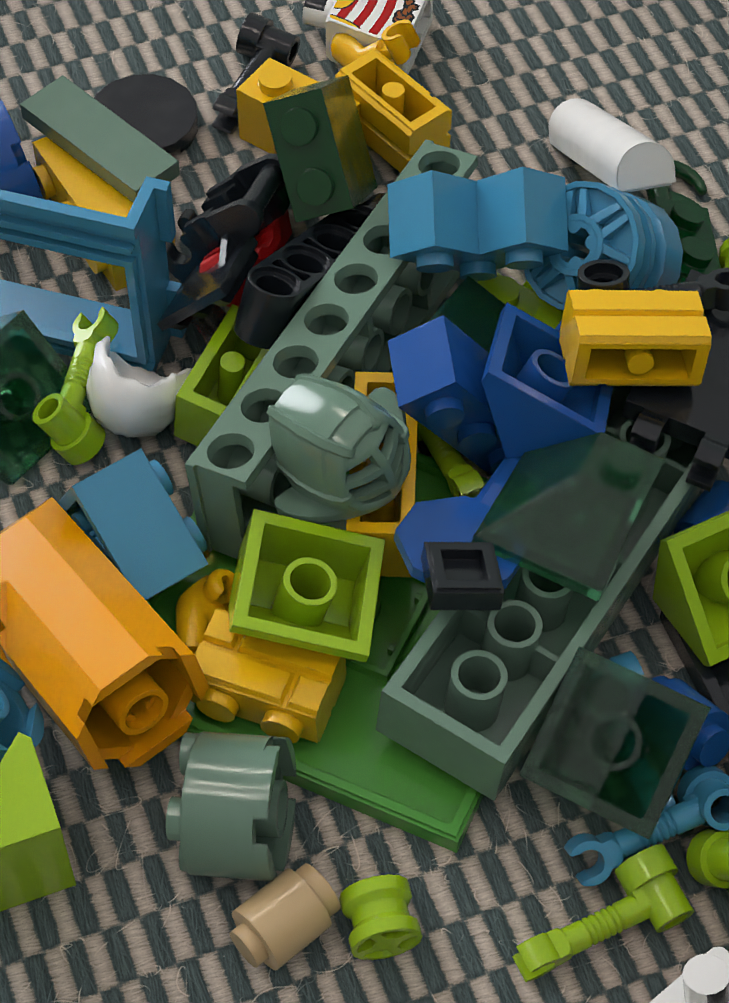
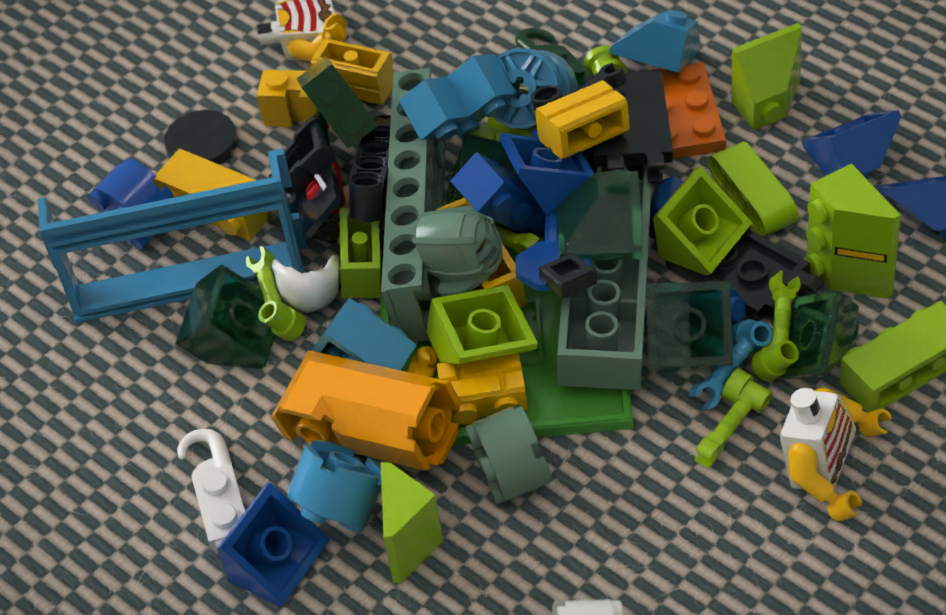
camera: 20 degrees left, 5 degrees down
(97, 137) = (195, 157): sand green tile -> none
(258, 41) = (248, 68): black brick -> none
(284, 917) = (567, 495): tan brick -> none
(380, 917) = (617, 471): lime wheel -> none
(609, 147) = (492, 33): white brick -> none

